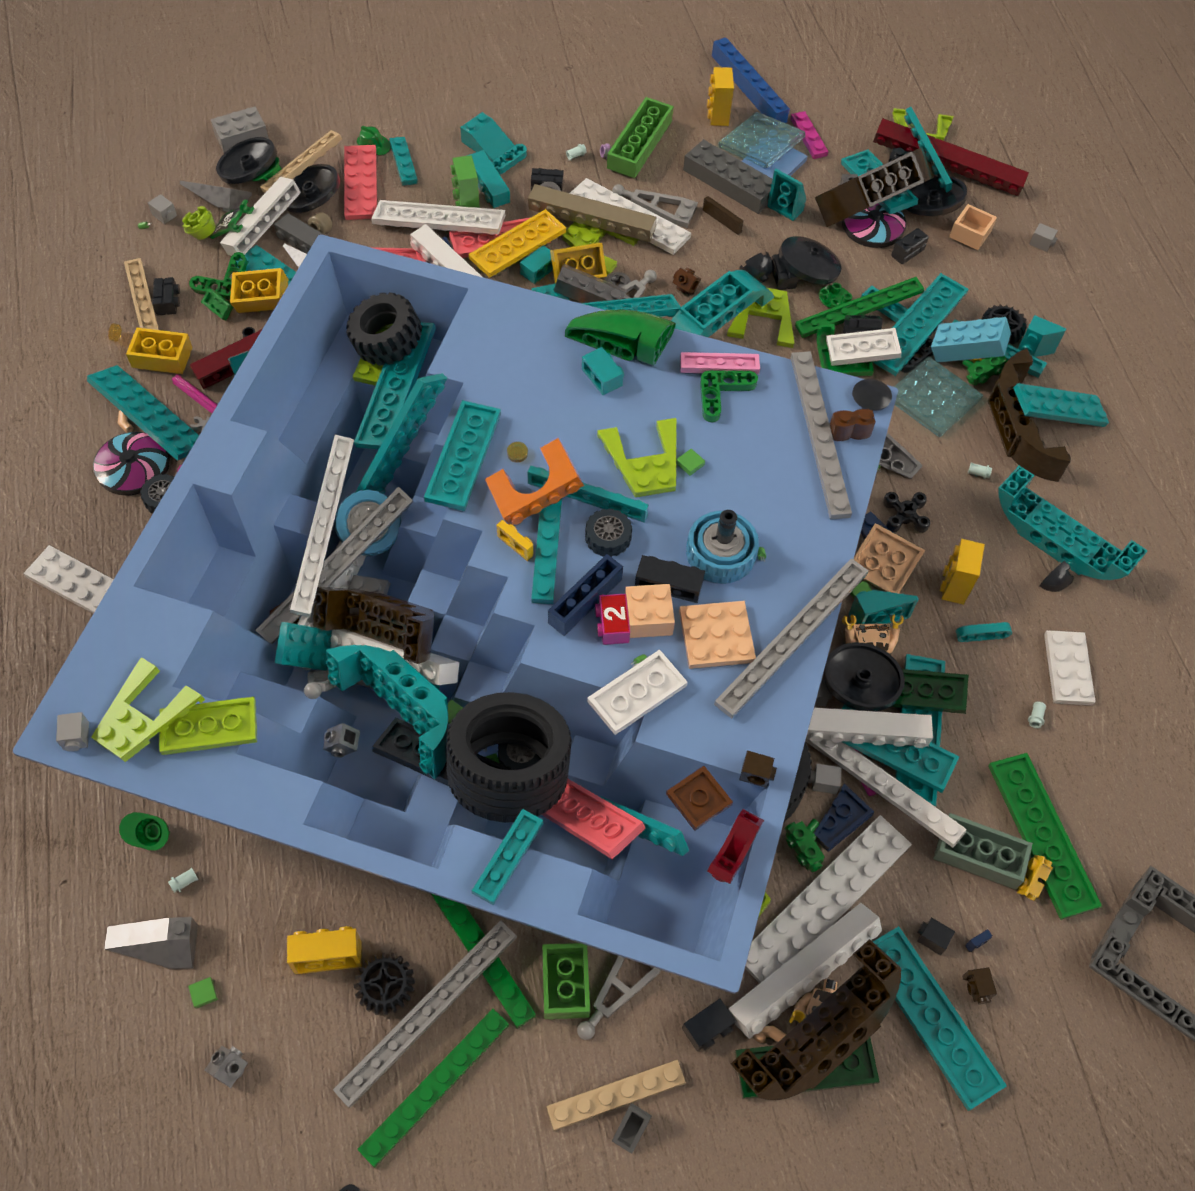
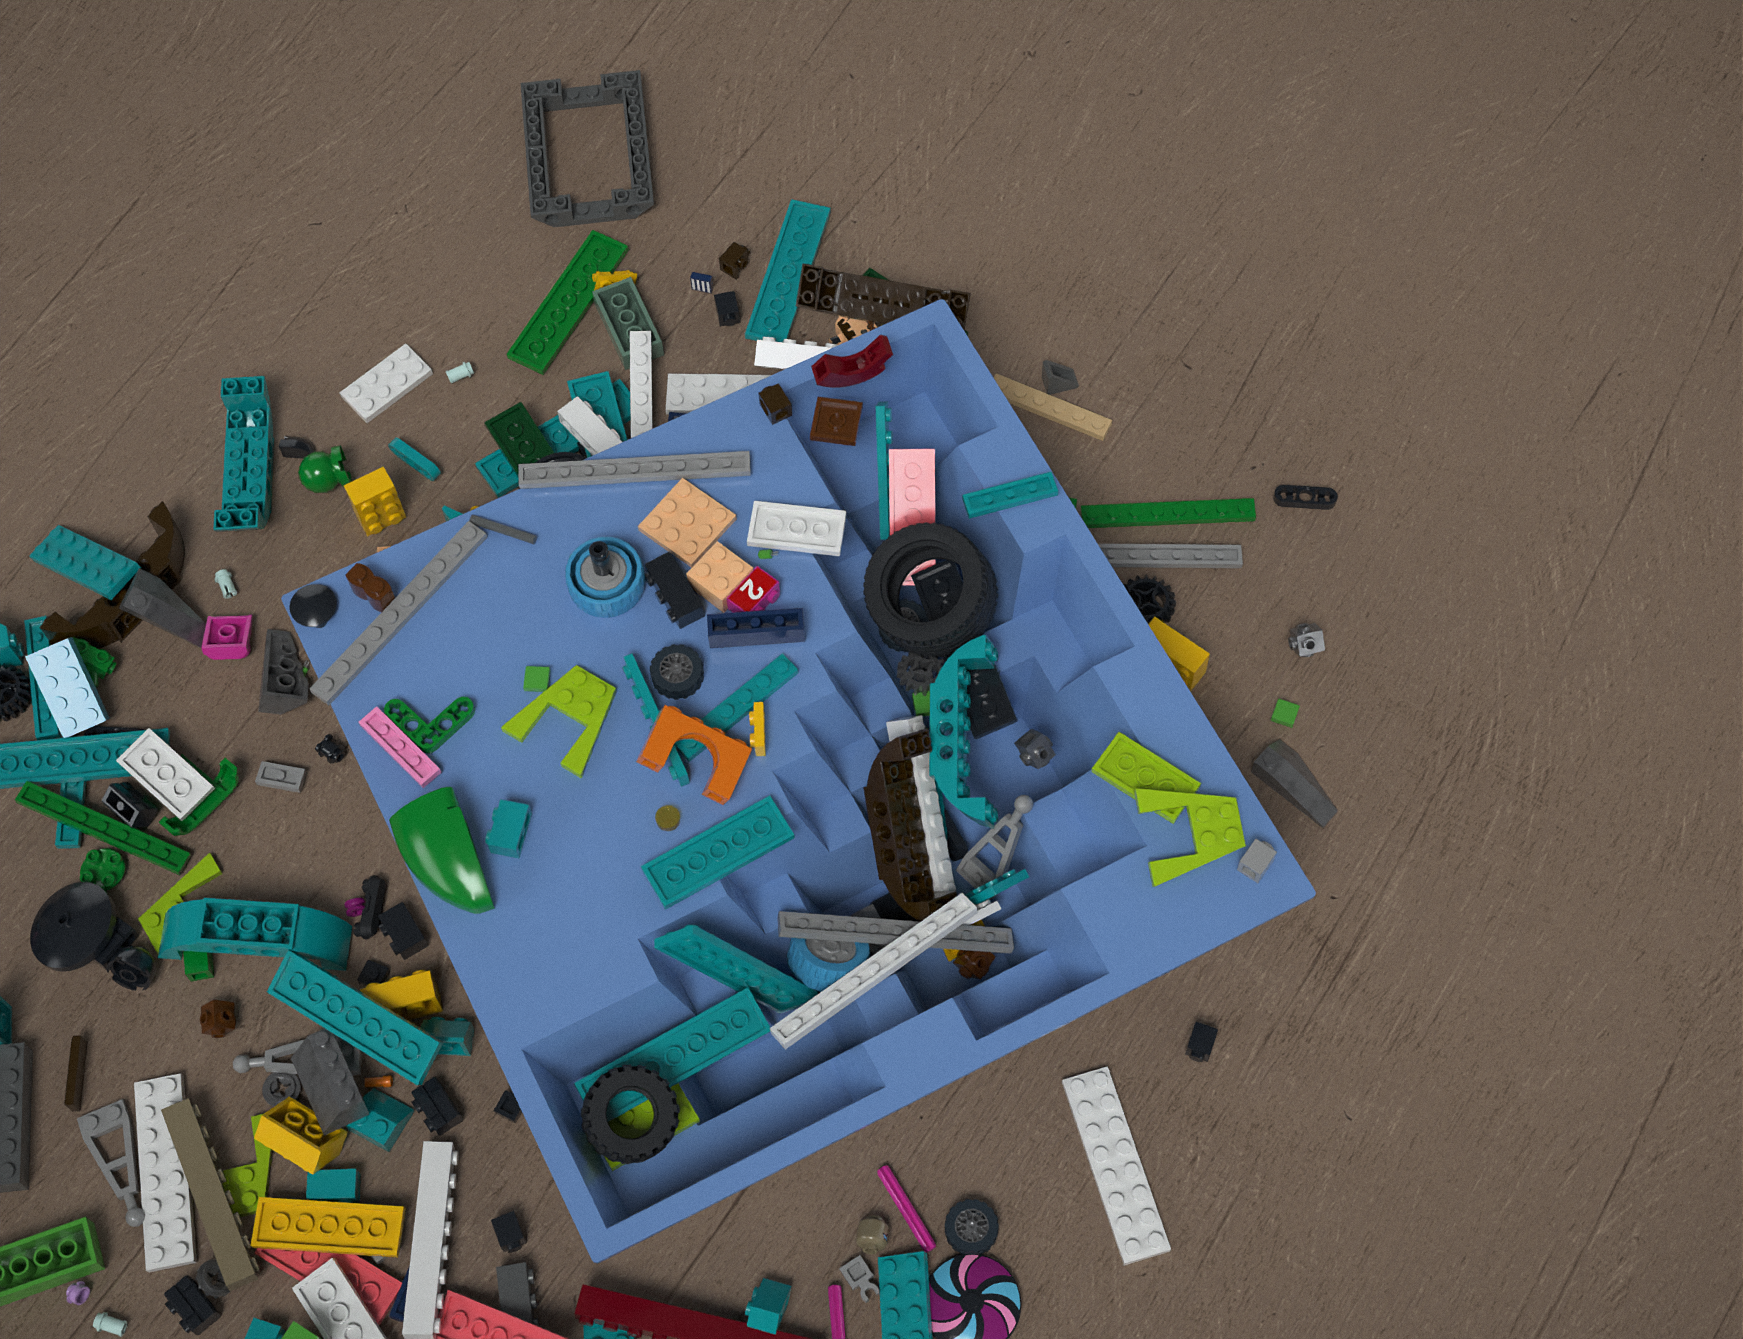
camera: 130 degrees left, 5 degrees up
(825, 529) = (503, 529): none -> dark grey bar
(935, 396) = (161, 687): clear light blue plate -> none
(937, 442) = (227, 637): none -> dark pink slope
(990, 408) = (158, 605): none -> flat silver wedge
(1018, 573) = (323, 471): none -> green tile

